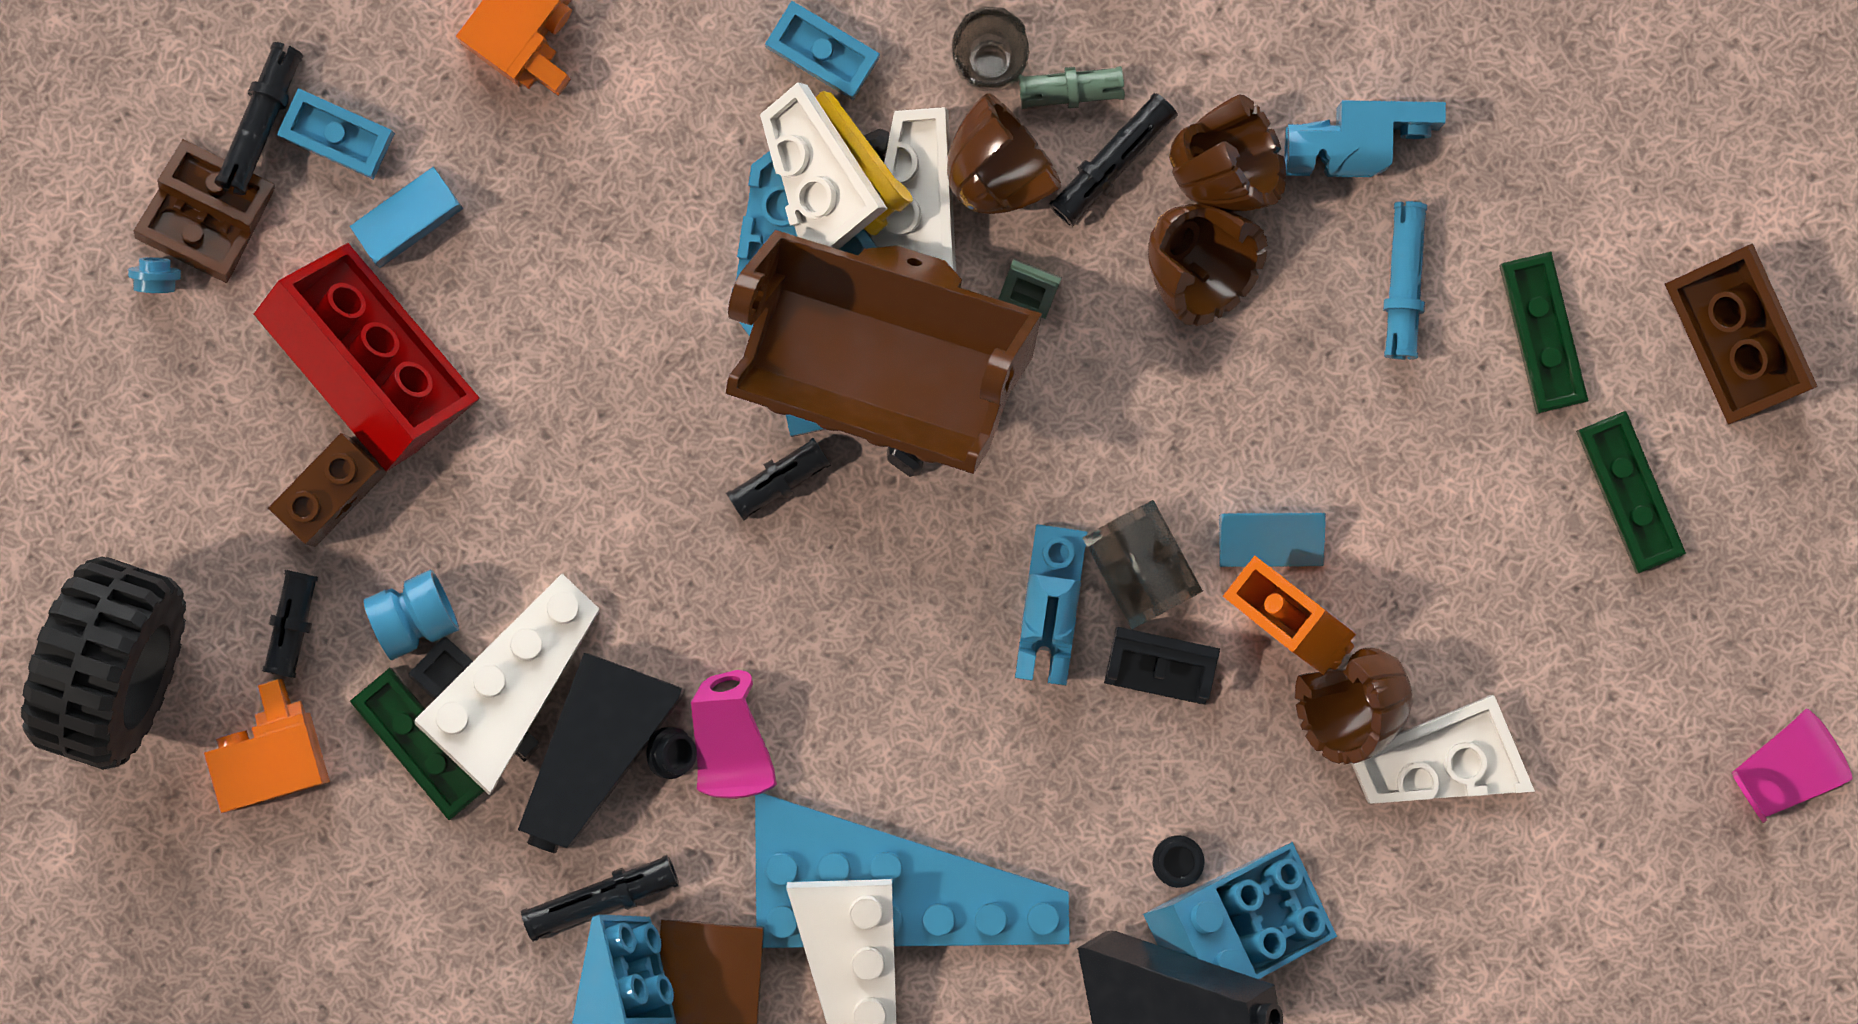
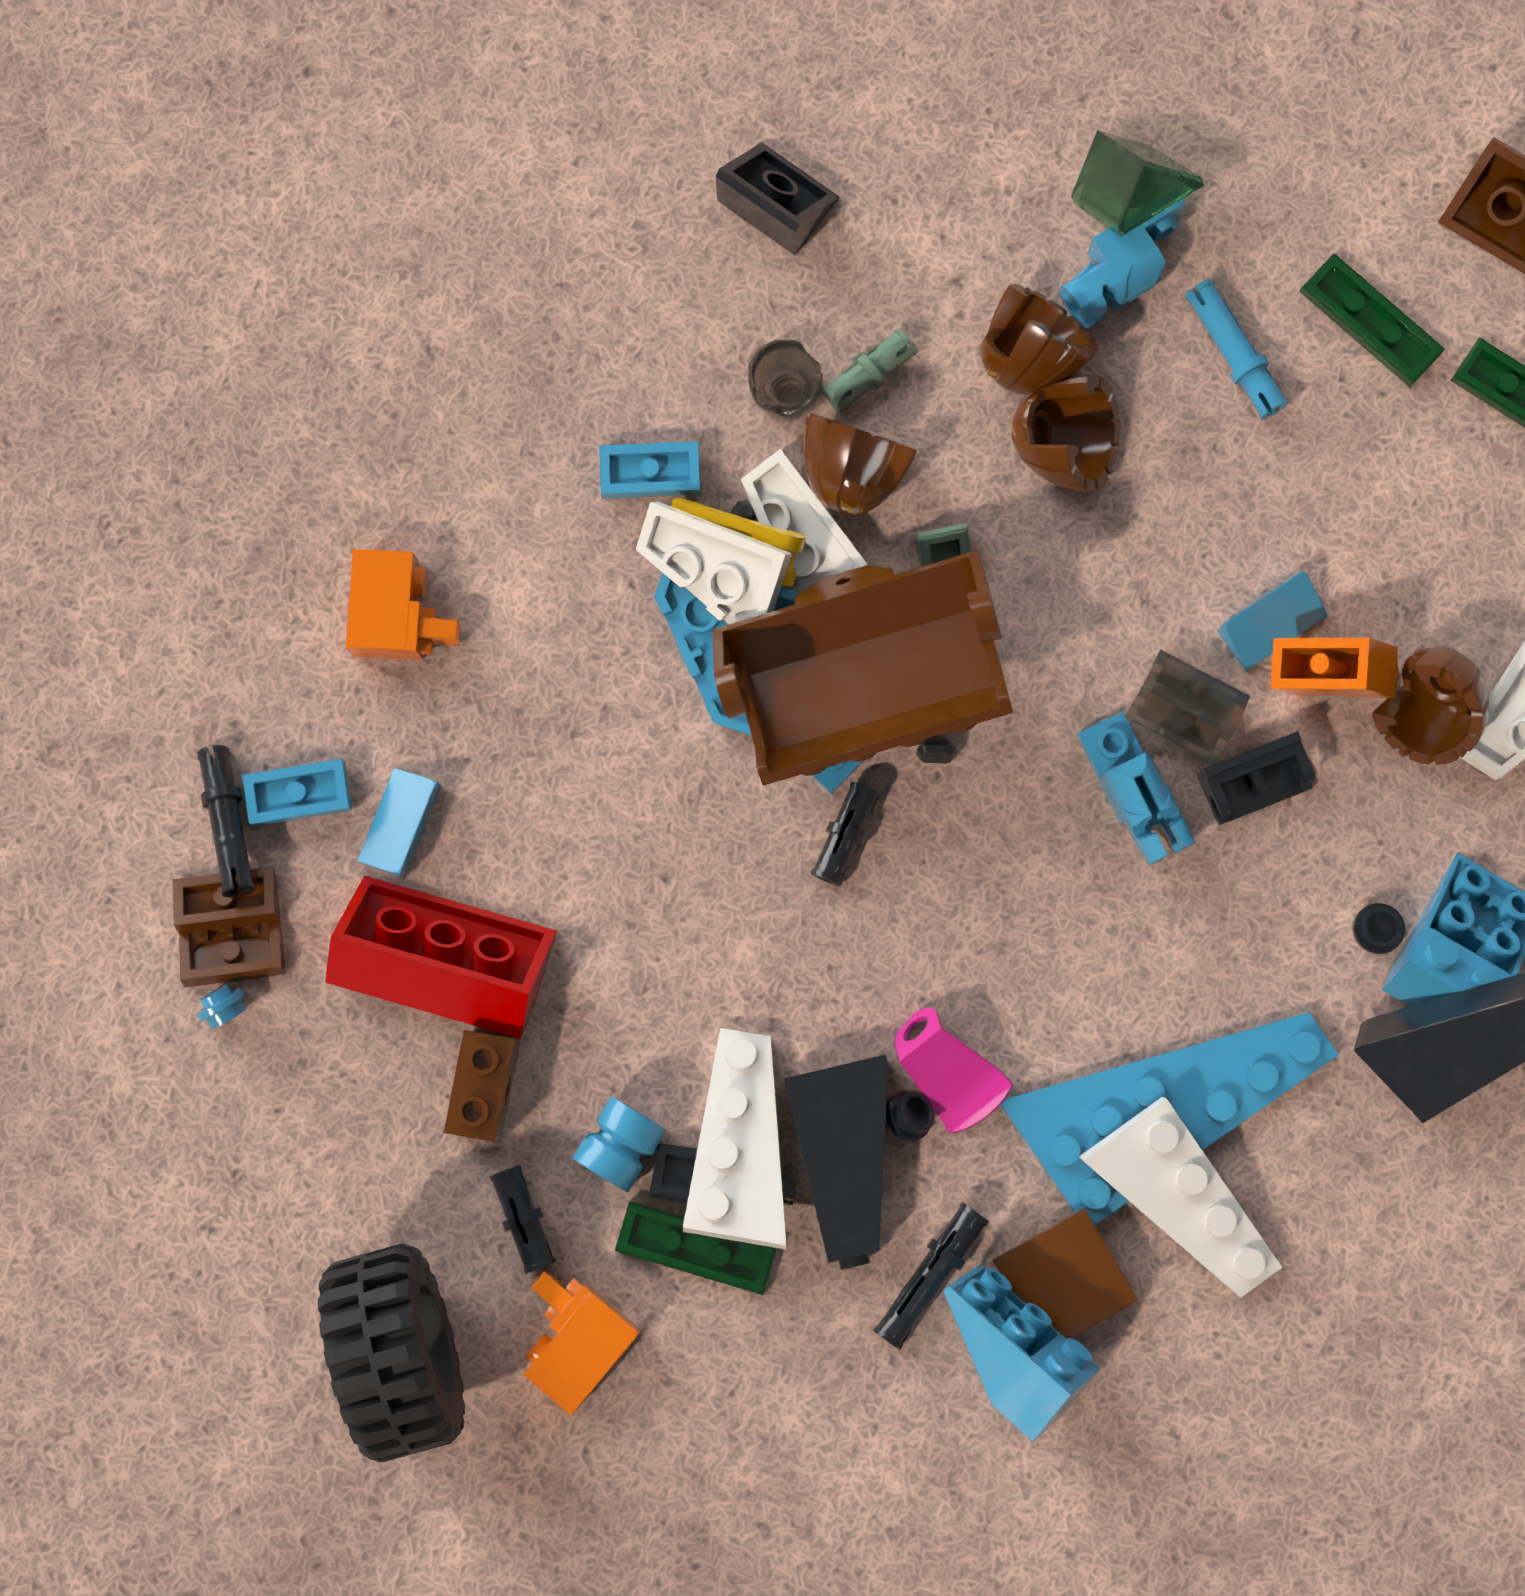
camera: 30 degrees left, 5 degrees down
(1097, 176) = (938, 425): black pin -> none
(1412, 71) = (1129, 182): none -> clear green slope

